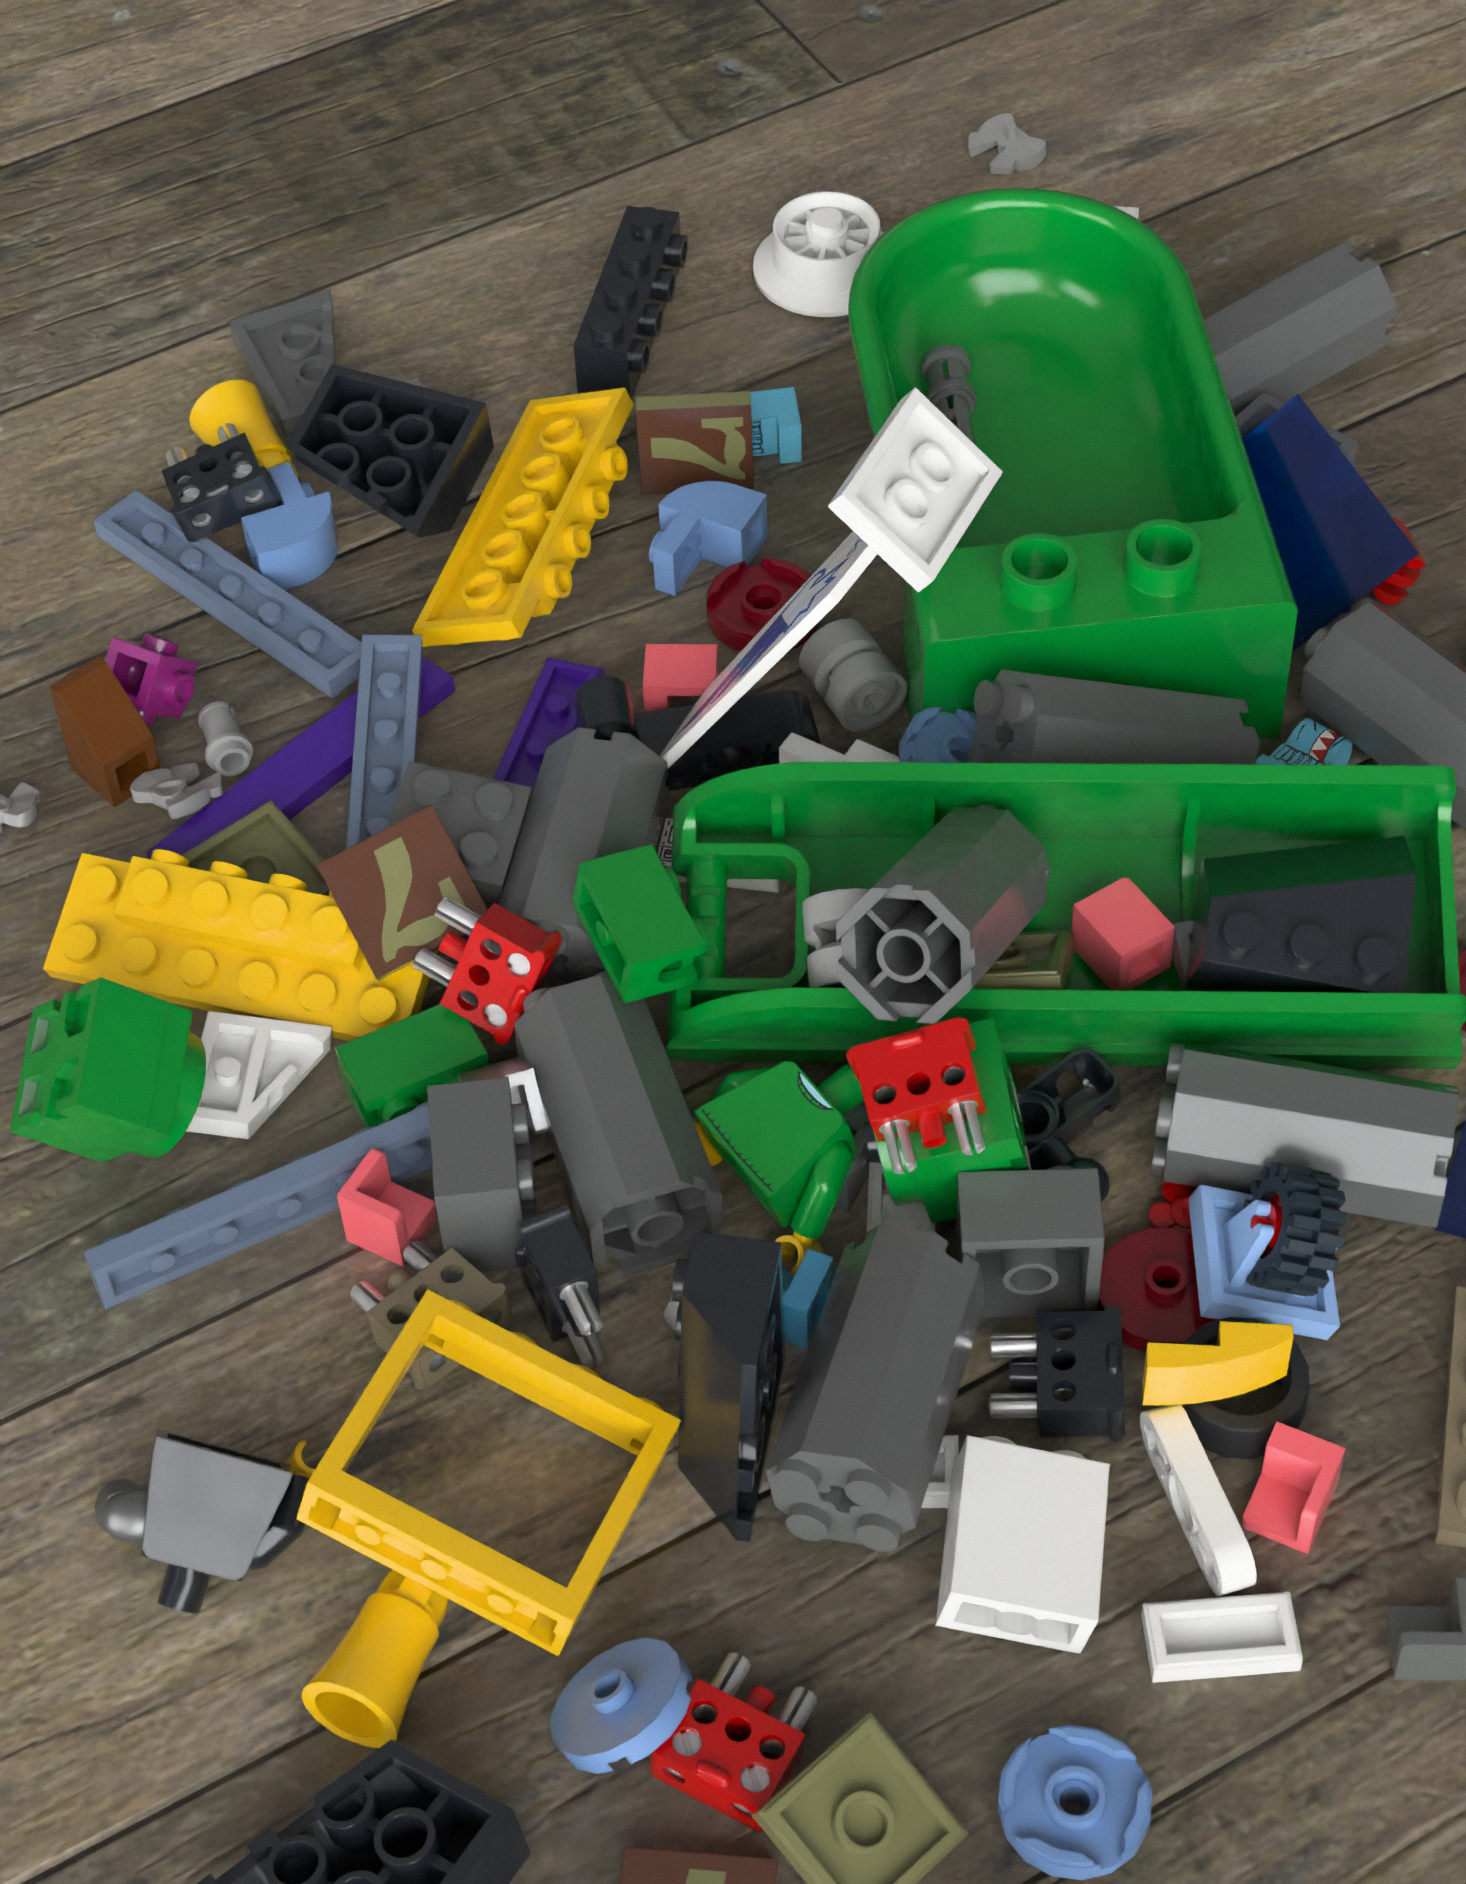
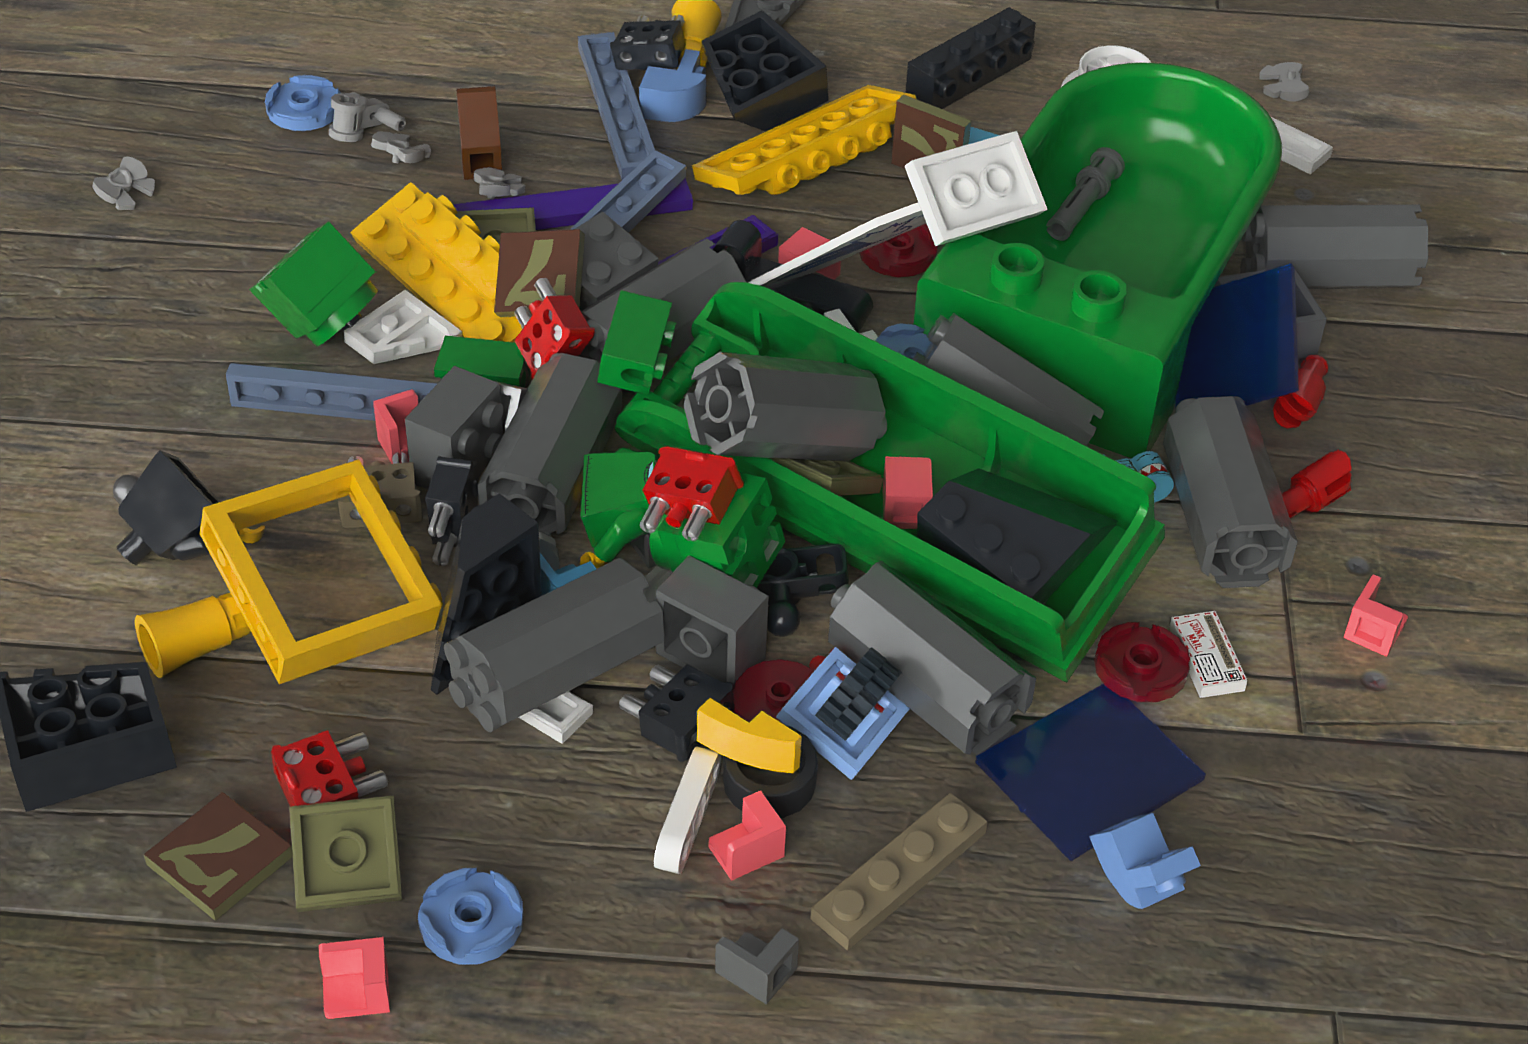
camera: 30 degrees right, 5 degrees down
(152, 675) = (528, 120): magenta brick -> none
(226, 747) = (542, 175): light grey pin -> none
(621, 1705) = (281, 722): medium blue plate -> none
(706, 523) = (883, 192): medium blue brick -> none
(852, 675) = (901, 294): light grey wheel -> none
(1024, 1544) = (565, 771): white brick -> none
(1221, 1637) = (636, 889): white tile -> none

